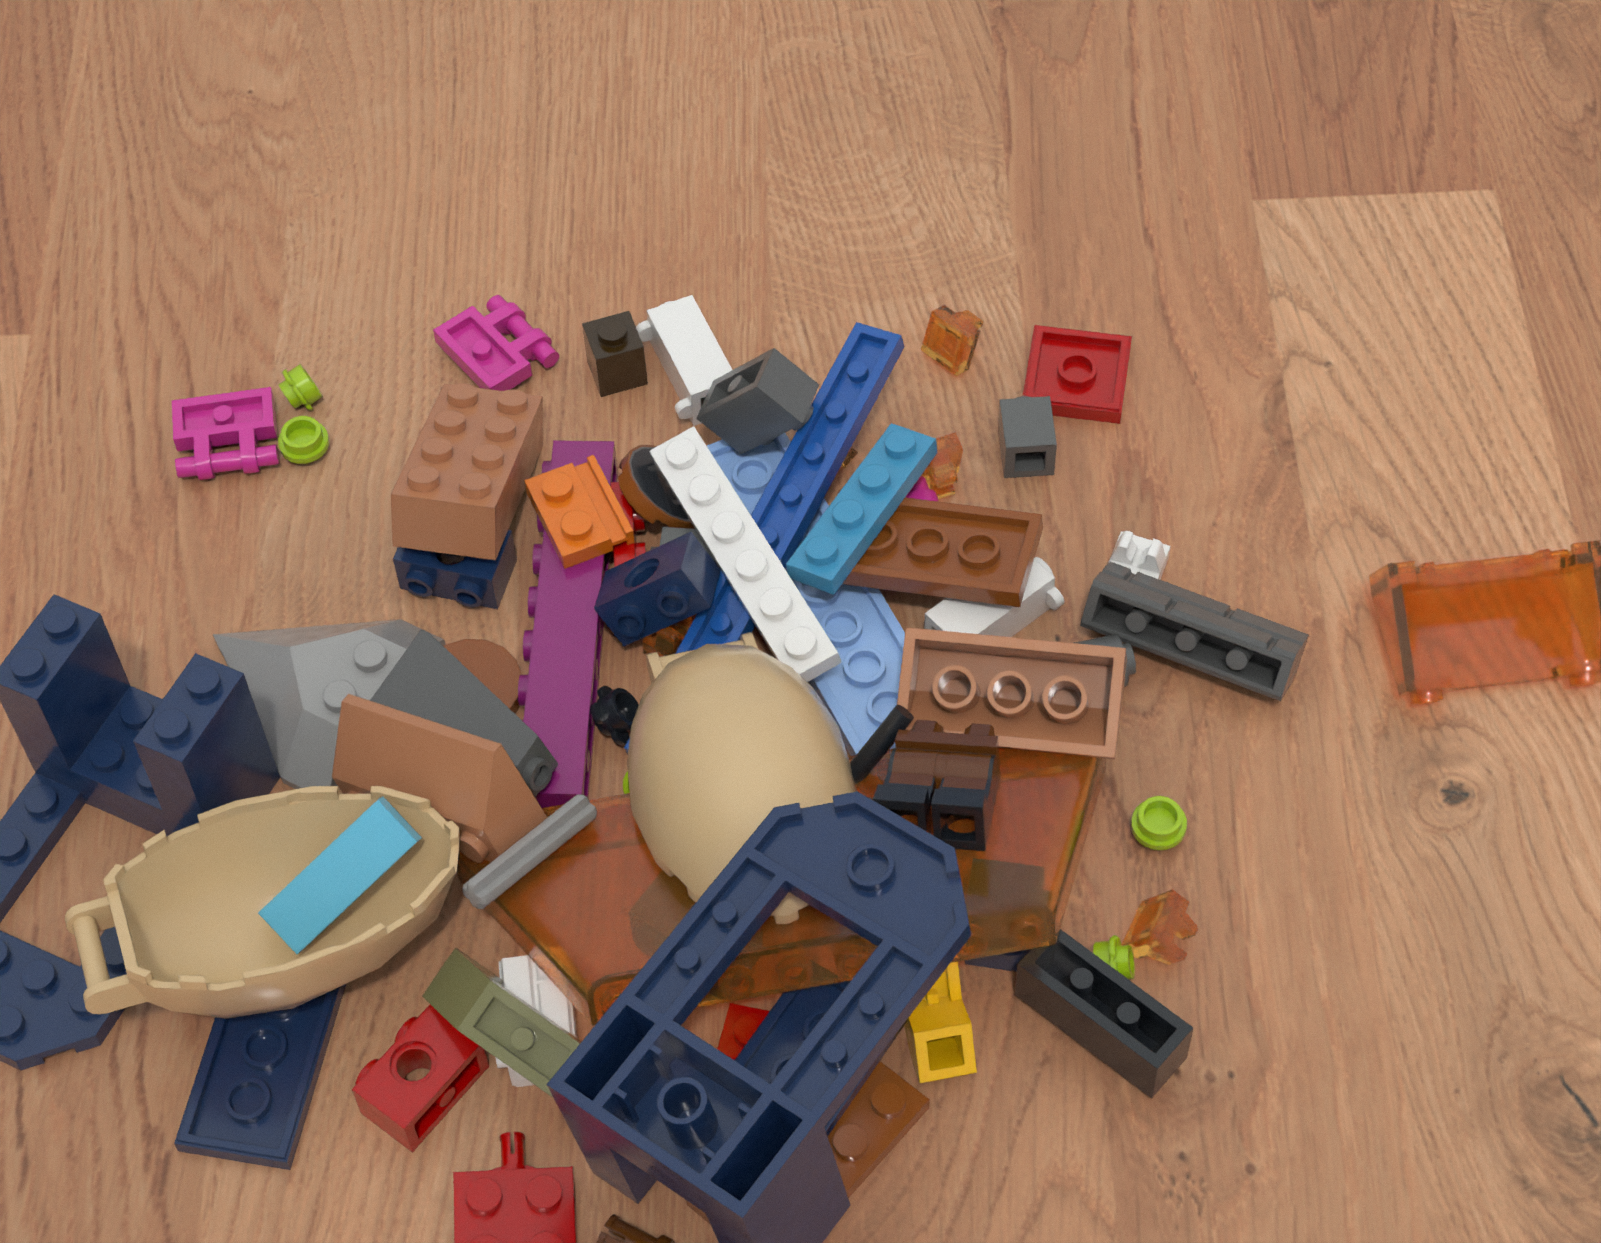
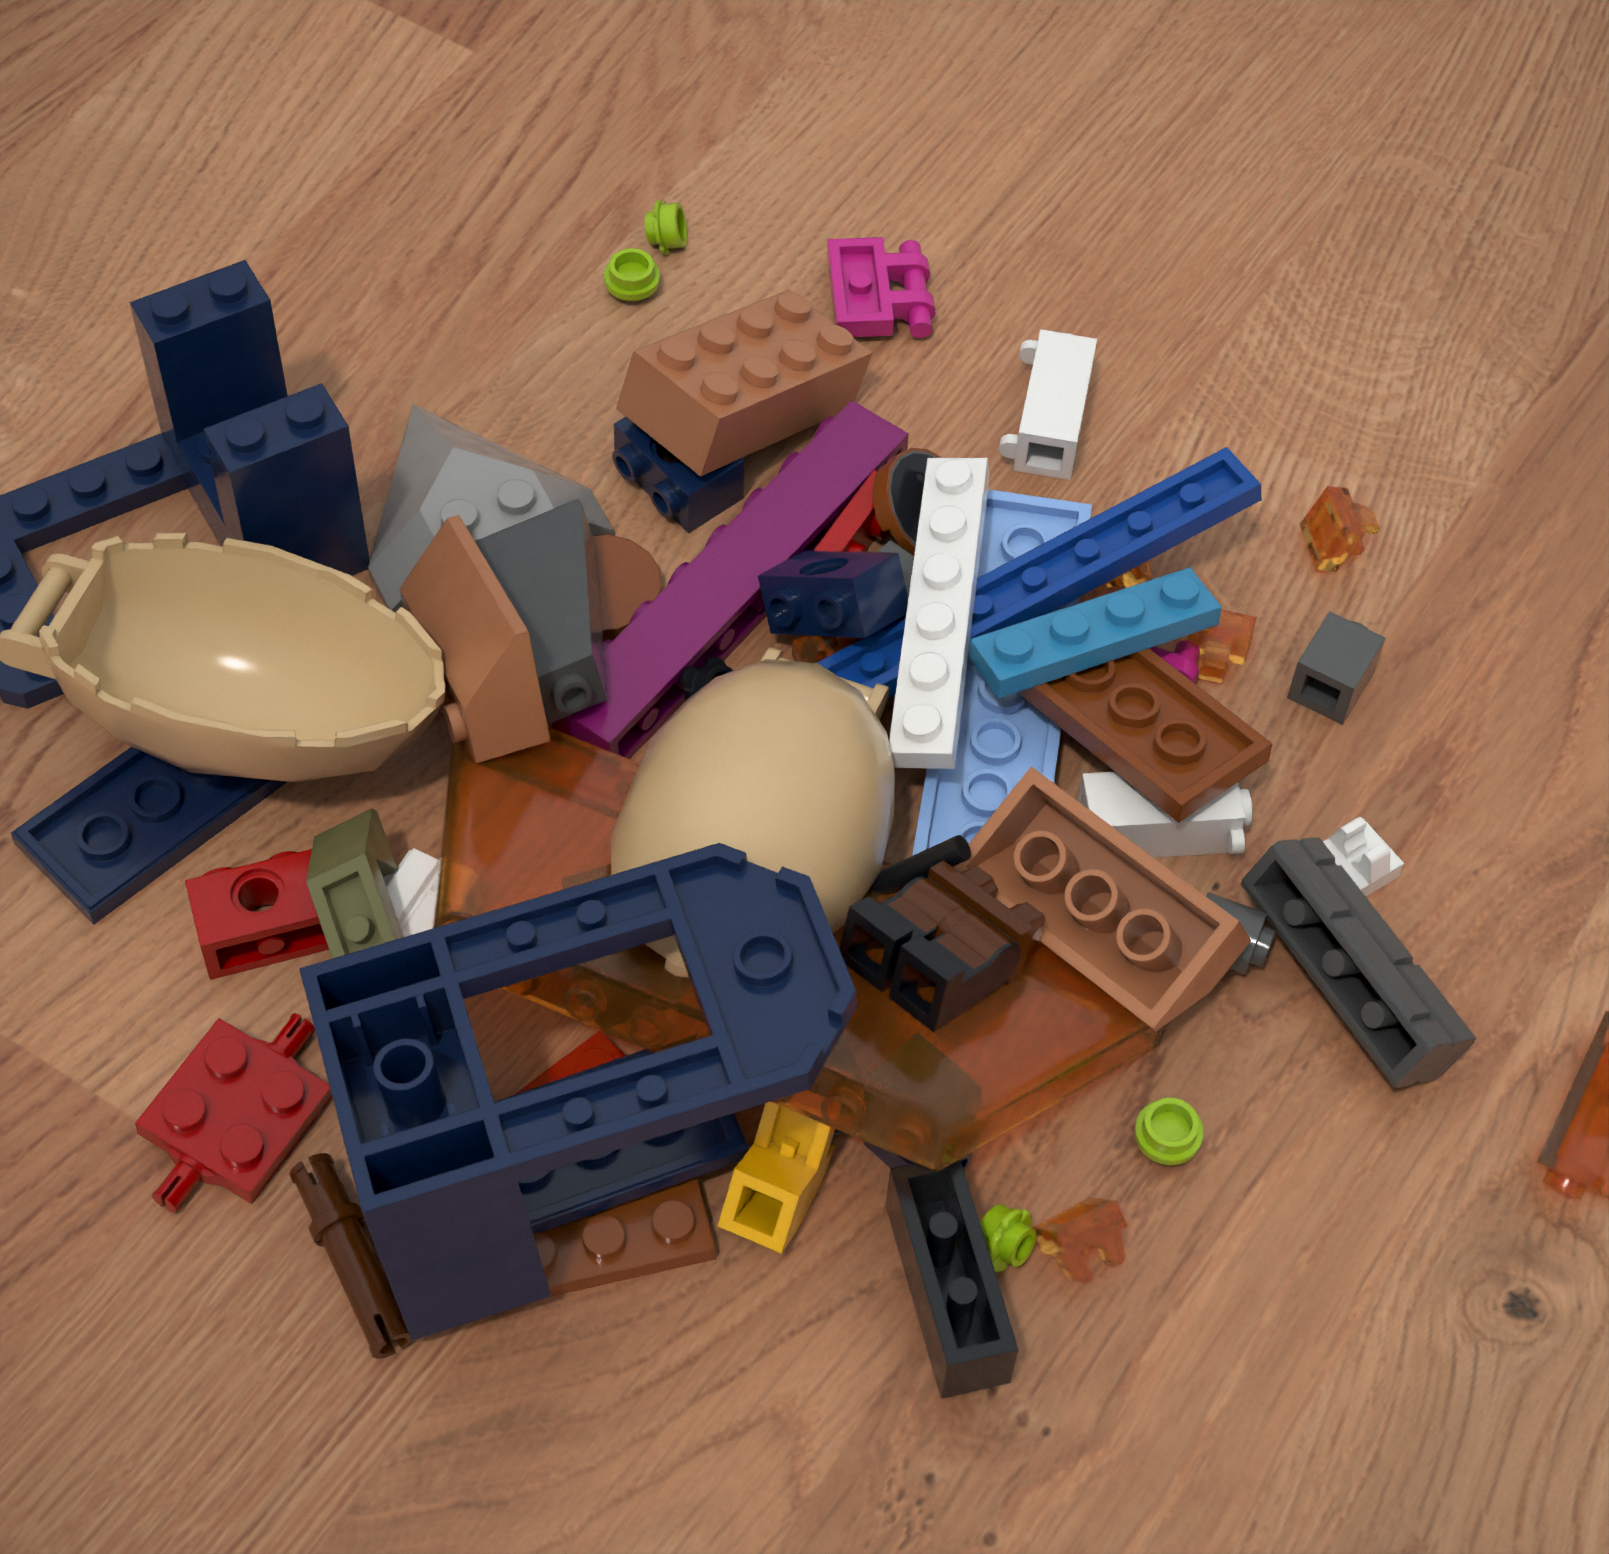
camera: 30 degrees right, 0 degrees up
(220, 421) = (571, 216): dark pink plate -> none
(339, 875) = (319, 674): medium azure tile -> none
(529, 851) = (504, 759): light grey axle -> none
(579, 511) = (817, 478): orange plate -> none
(615, 353) = (982, 355): dark brown brick -> none
(758, 401) = (1069, 471): dark grey brick -> none
(1079, 372) = (1447, 638): red tile -> none

